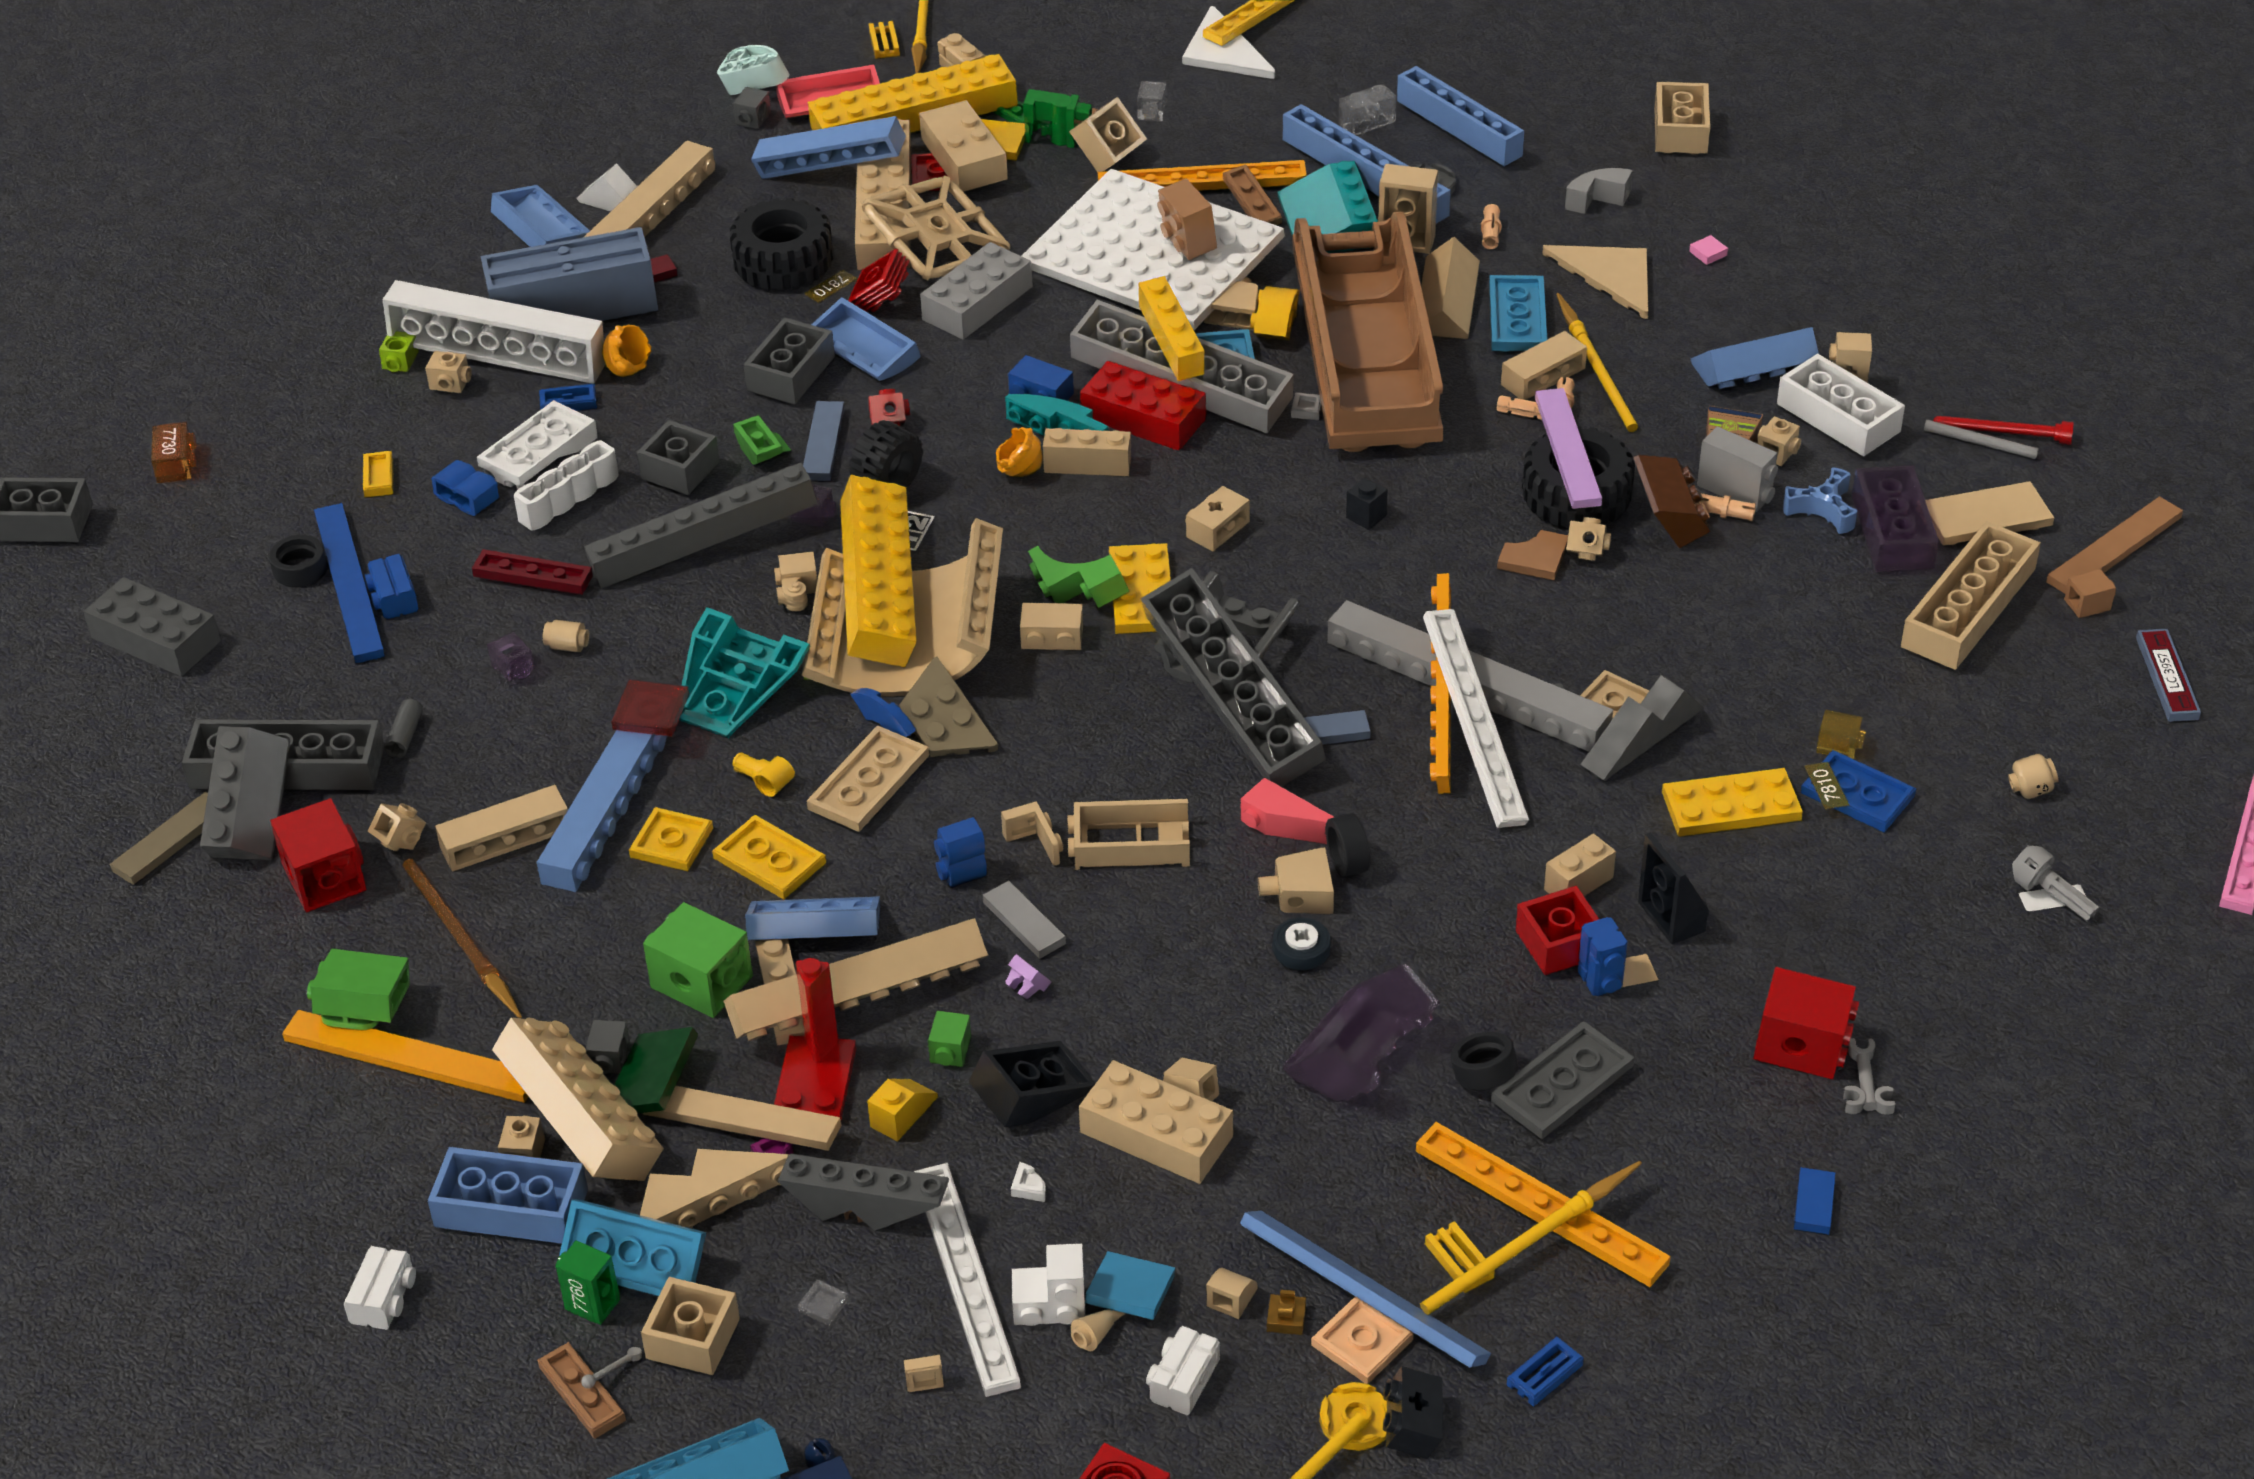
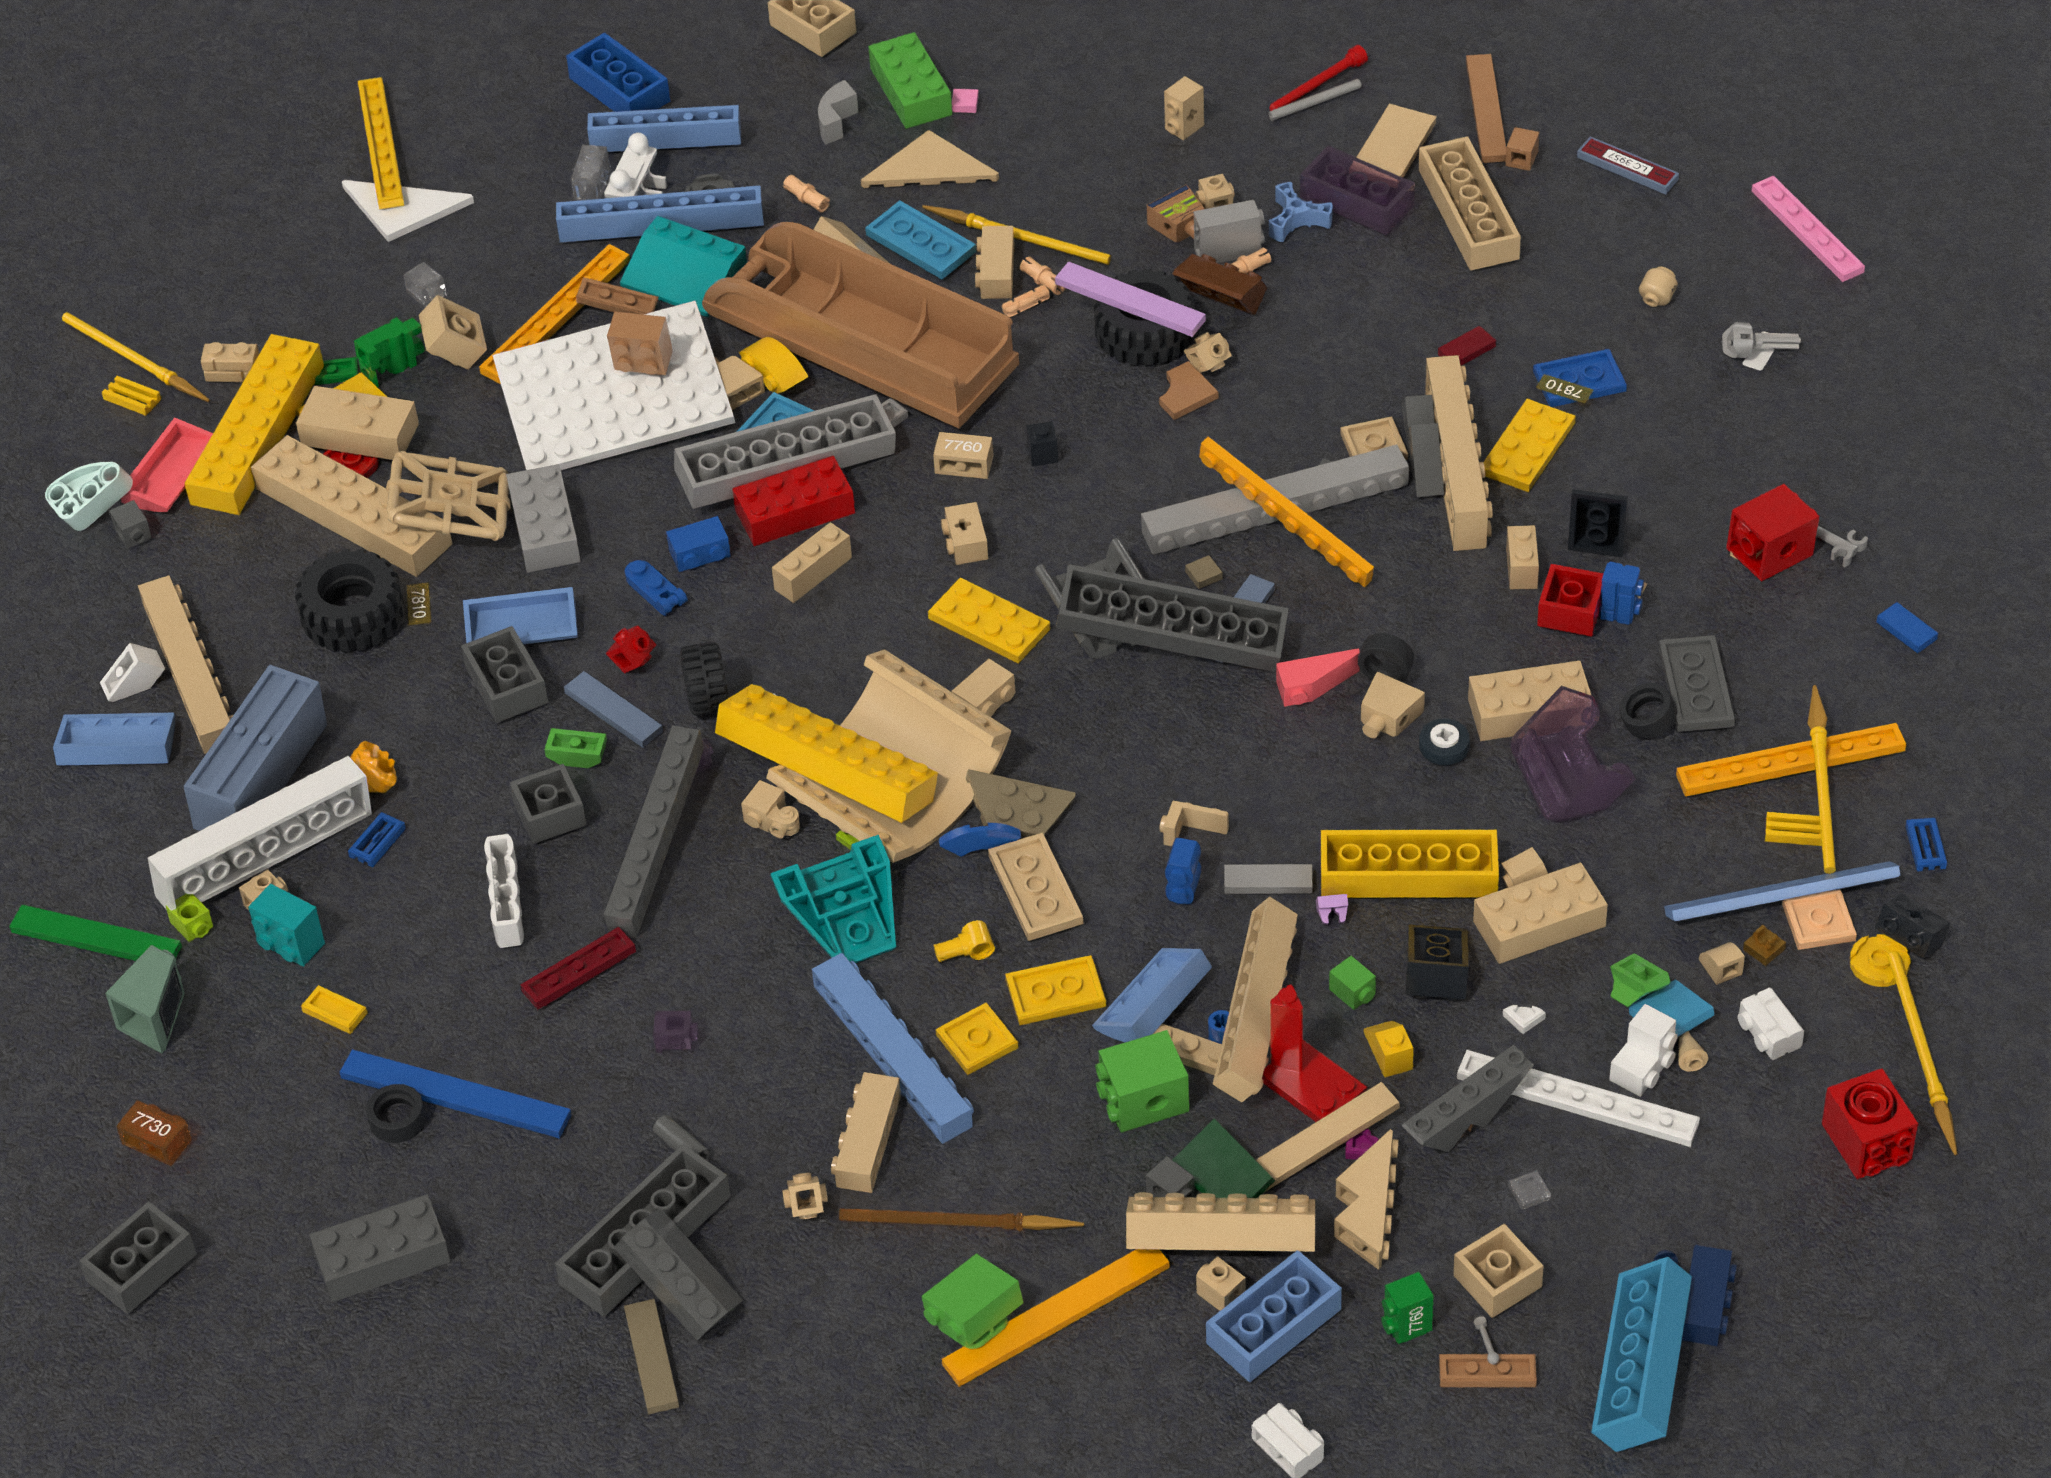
camera: 50 degrees left, 5 degrees up
(291, 372) = (148, 998): none -> sand green slope
(319, 854) = (792, 1259): red brick -> none
(341, 321) = (88, 934): none -> green tile
(392, 587) = (500, 1065): blue brick -> none
(422, 396) = (286, 925): none -> teal brick
(465, 487) = (425, 959): blue brick -> none
(537, 443) = (424, 885): white piece -> none
(565, 635) = (682, 984): tan brick -> none
(640, 1246) = (1413, 1249): dark azure plate -> none
(650, 708) = (842, 968): clear red tile -> none
(828, 147) = (270, 502): medium blue brick -> none
(880, 281) = (471, 566): red brick -> none
(923, 1373) = (1651, 1165): tan tile -> none
(974, 388) = (654, 586): none -> blue plate
(1020, 453) = (773, 600): light orange hair -> none
(1049, 412) = (744, 558): teal slope -> none
(1064, 581) = (940, 659): bright green arch -> none
(1121, 995) = (1409, 863): none -> yellow brick
(1145, 1236) = (1636, 978): none -> bright green slope
(1166, 814) = (1261, 749): tan door -> none
(1171, 328) = (765, 425): yellow brick -> none
(1303, 468) = (963, 455): none -> tan brick
(1337, 682) = (1203, 572): none -> dark tan tile
(1387, 943) = (1510, 698): none -> tan brick
(1394, 124) = (634, 171): none -> white piece
(1415, 194) = (754, 210): tan brick -> none
(1475, 719) = (1339, 515): white tile -> none
(1484, 62) = (617, 76): none -> blue brick
(1648, 753) = (1461, 470): none -> tan brick
(1685, 206) = (910, 80): none -> bright green brick
(1755, 358) = (1114, 151): medium blue slope -> none
(1802, 696) = (1468, 345): none -> dark red tile
(1840, 404) = (1215, 141): white brick -> none
(1840, 733) = (1526, 351): clear yellow brick -> none

